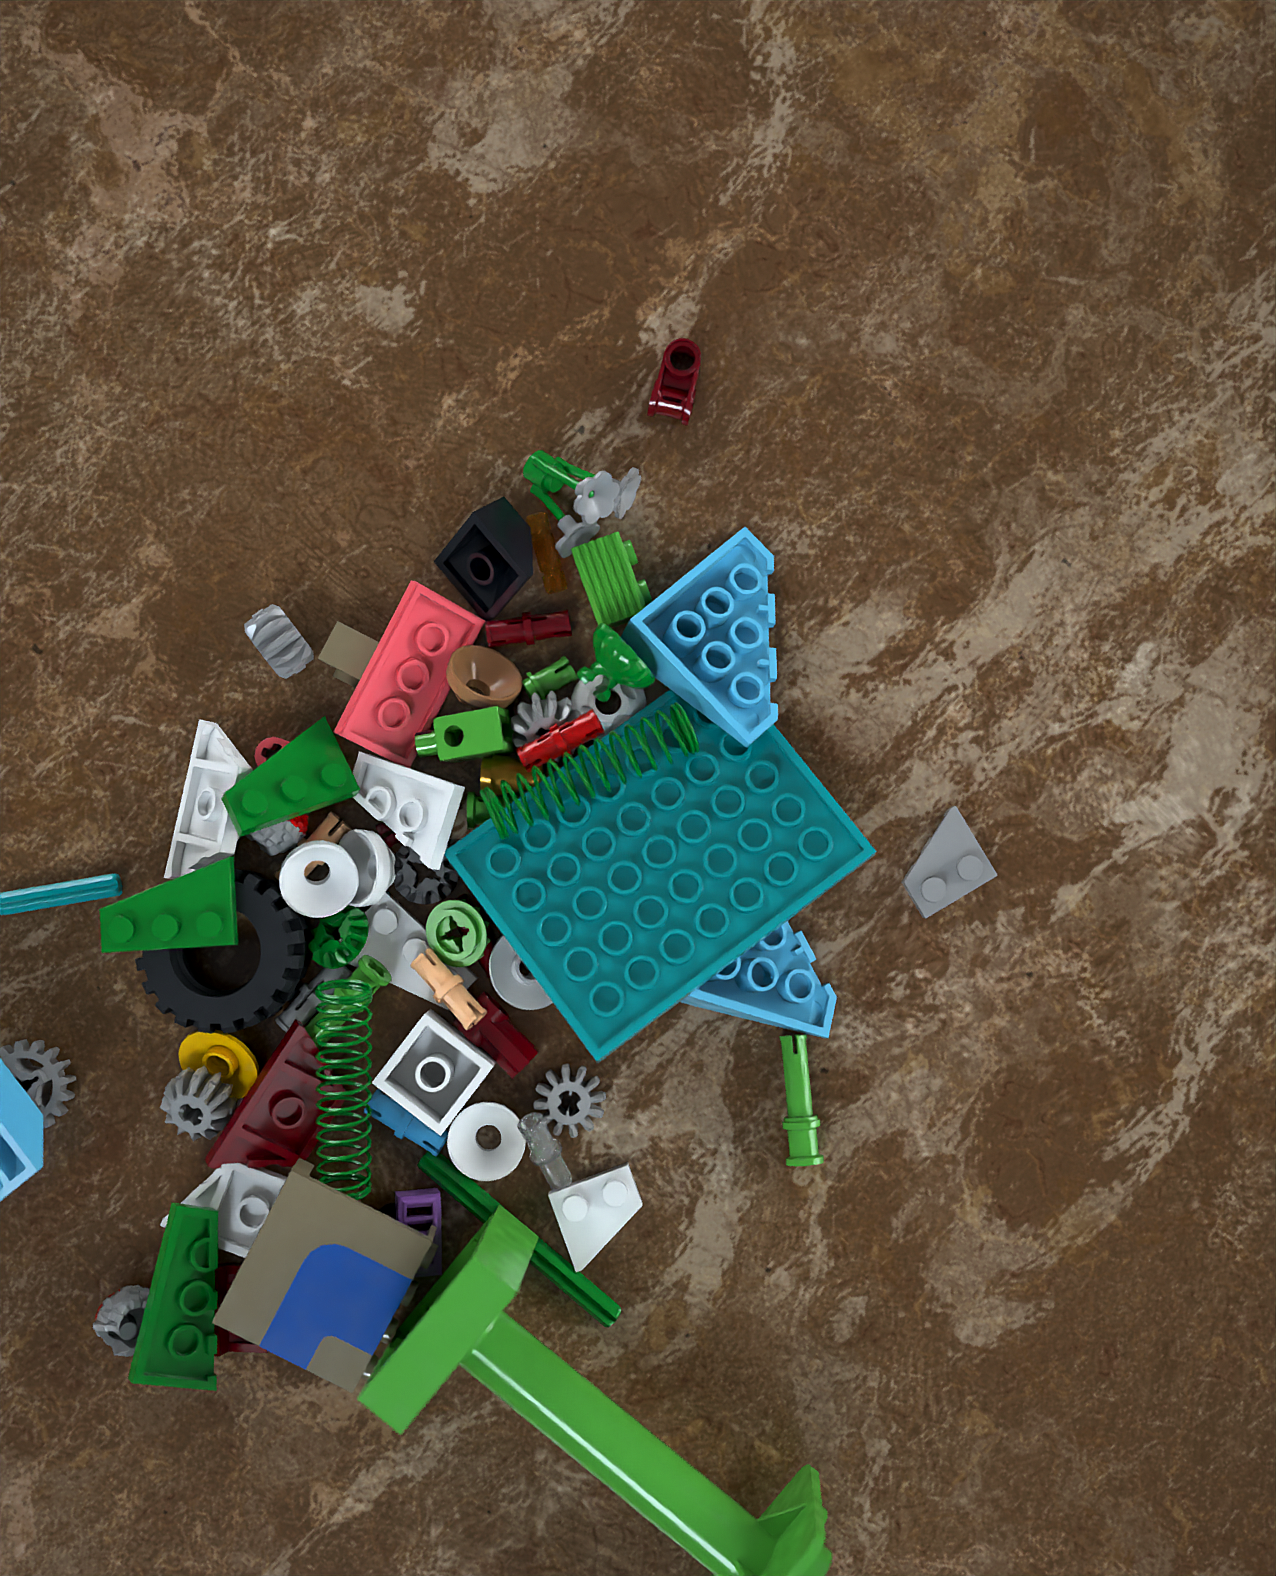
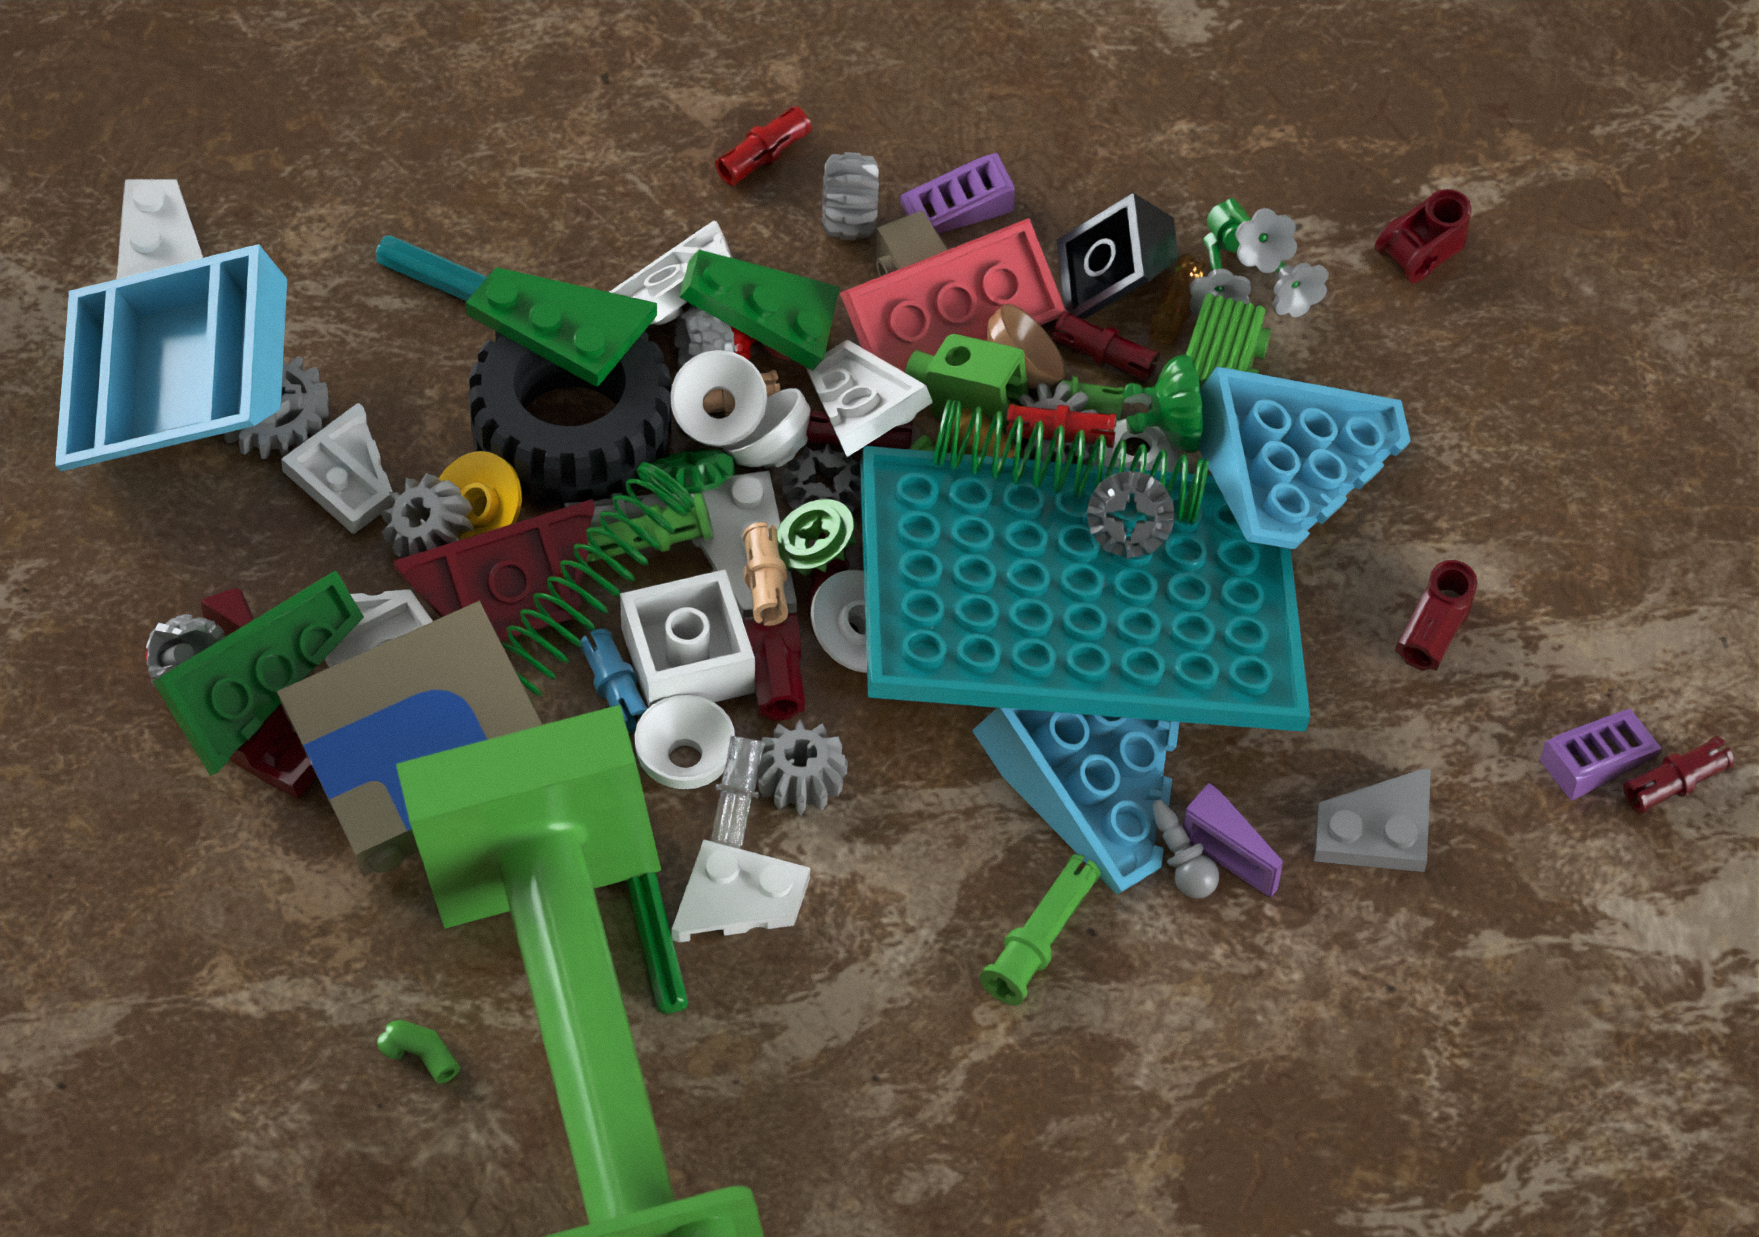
camera: 35 degrees right, 30 degrees down
(112, 1096) = (342, 470): none -> white wing
(133, 1264) = (228, 610): none -> dark red slope
(186, 632) = (763, 145): none -> red pin
(333, 571) = (969, 177): none -> medium lavender slope
(483, 1461) = (421, 1041): none -> bright green arm
(669, 771) = (1150, 498): none -> flat silver gear
(859, 951) = (1231, 840): none -> medium lavender slope
(860, 984) = (1195, 873): none -> light grey bar
(886, 693) = (1437, 615): none -> dark red piece
(1033, 740) = (1578, 780): none -> medium lavender slope
(1107, 692) = (1678, 775): none -> dark red pin

